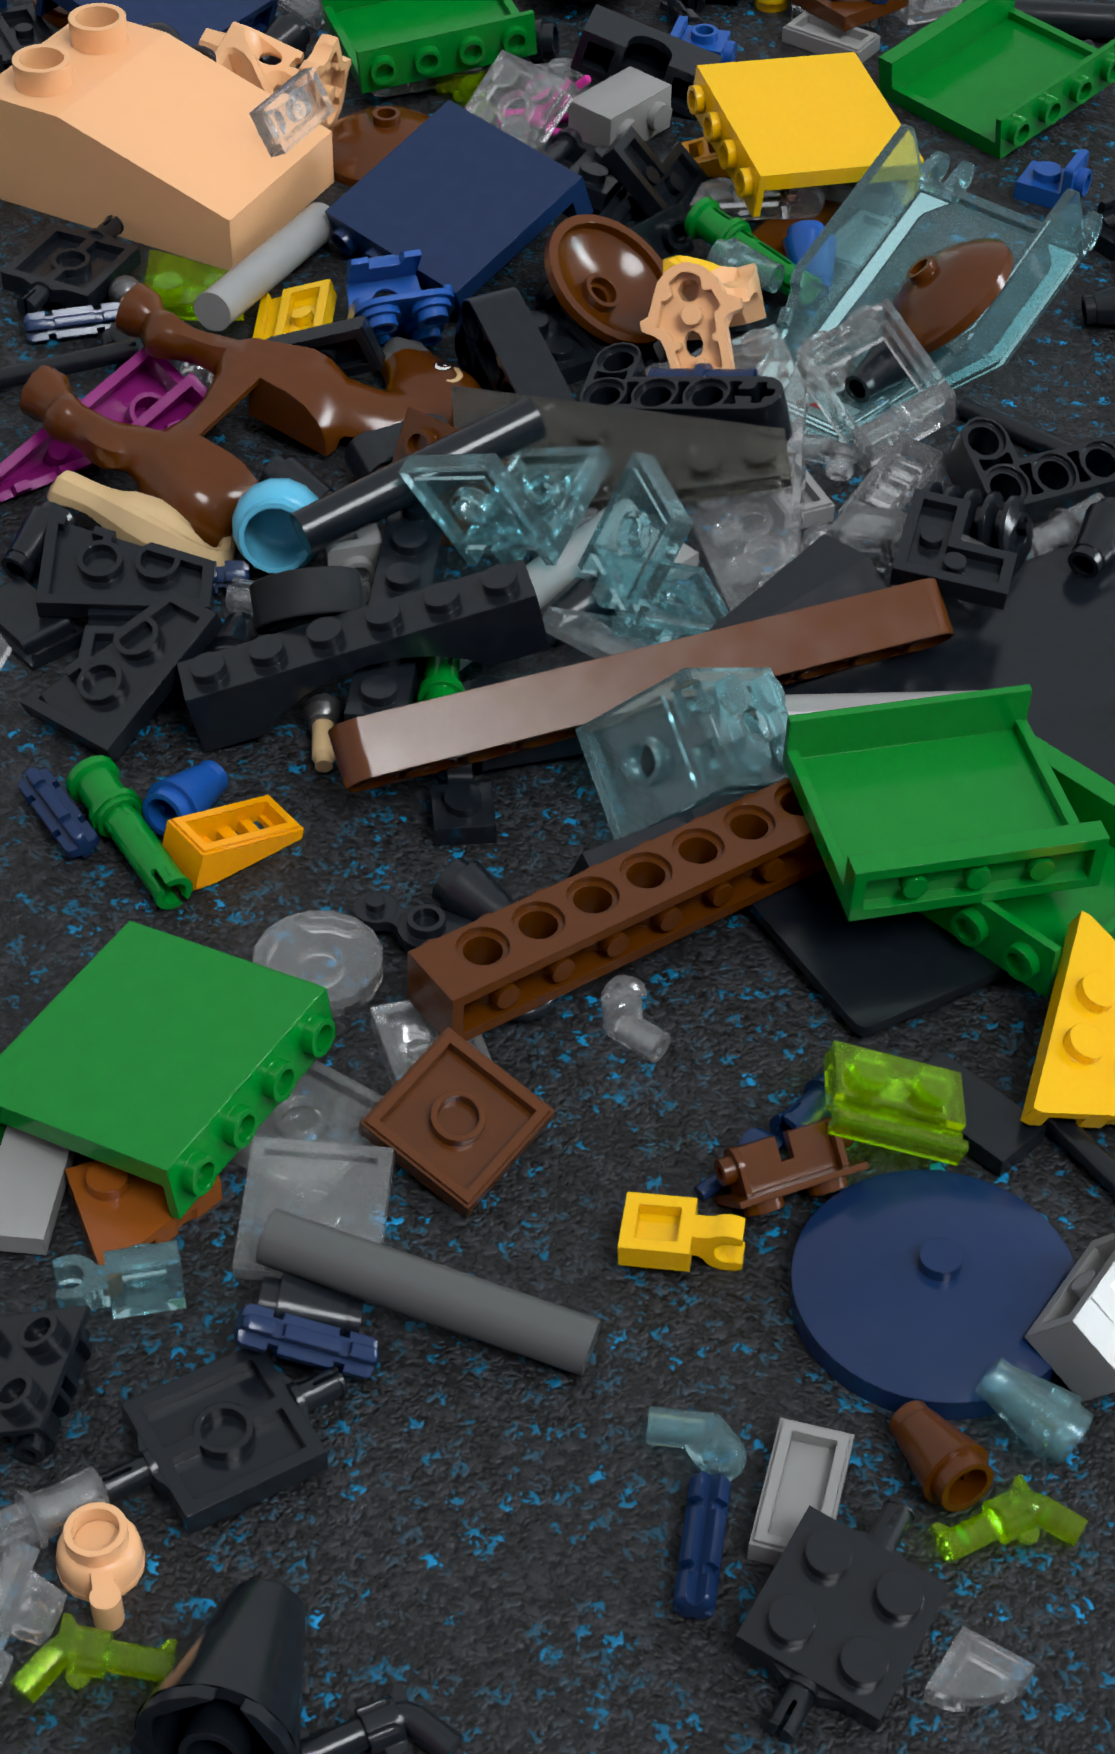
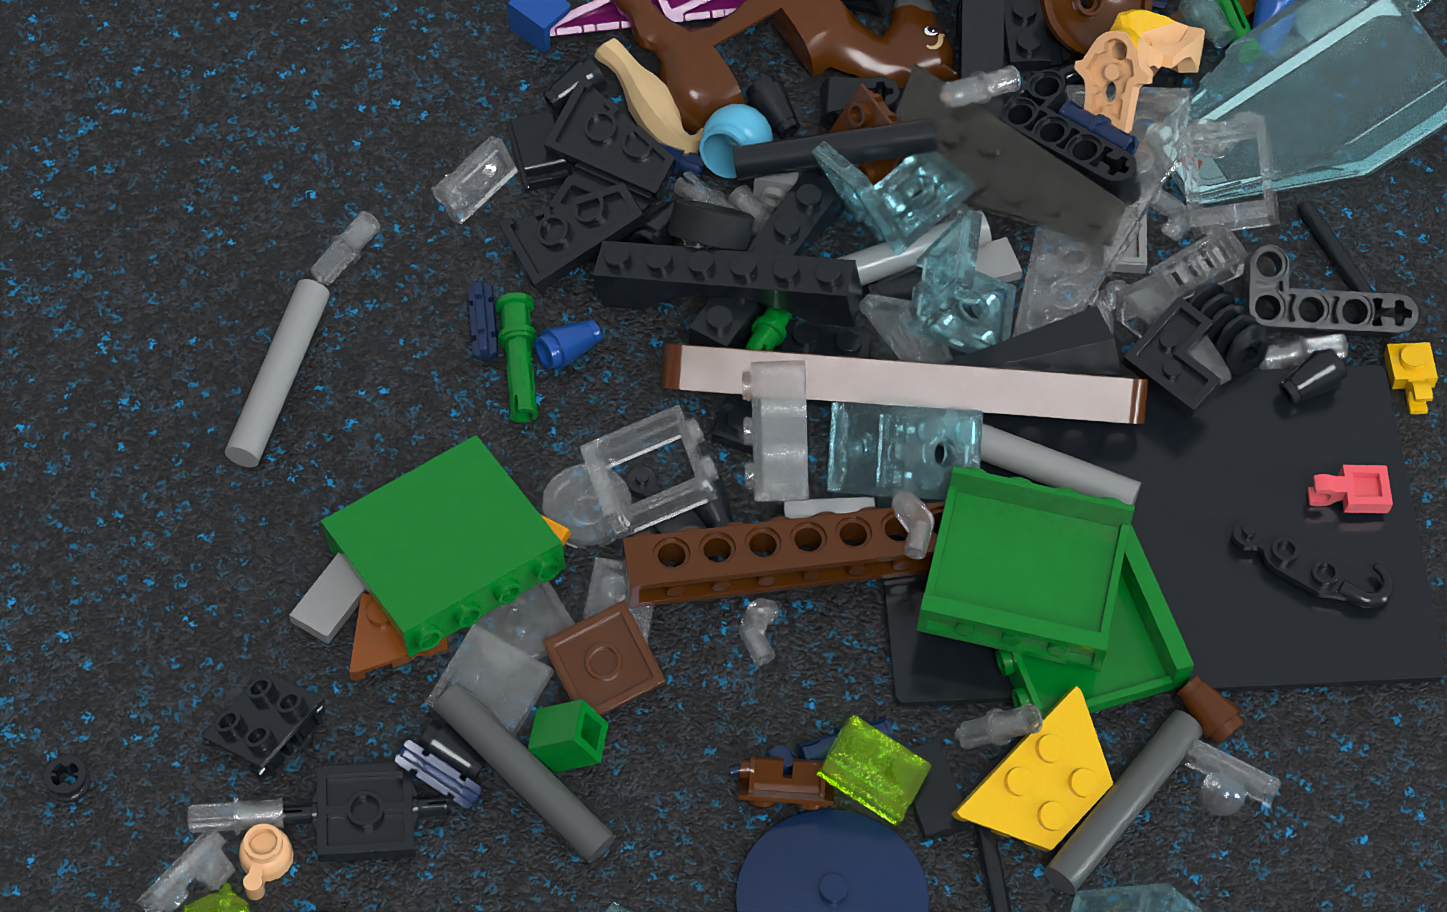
camera: 25 degrees right, 15 degrees up
(131, 1281) = (360, 688): clear light blue plate -> none
(211, 850) = (566, 400): light orange slope -> none
(320, 715) = (688, 310): piece -> none
(357, 844) = (639, 439): none -> clear window
(465, 1219) = (568, 736): none -> green brick
(529, 775) = (777, 430): none -> clear brick
(548, 376) = (980, 87): none -> clear axle
(667, 1231) = (692, 791): yellow plate -> none
(772, 802) = (917, 522): none -> clear arm
(875, 374) = (1245, 156): black cone -> none
(952, 289) = (1334, 112): reddish brown dish -> none
(1013, 998) = (1000, 726): none -> clear axle

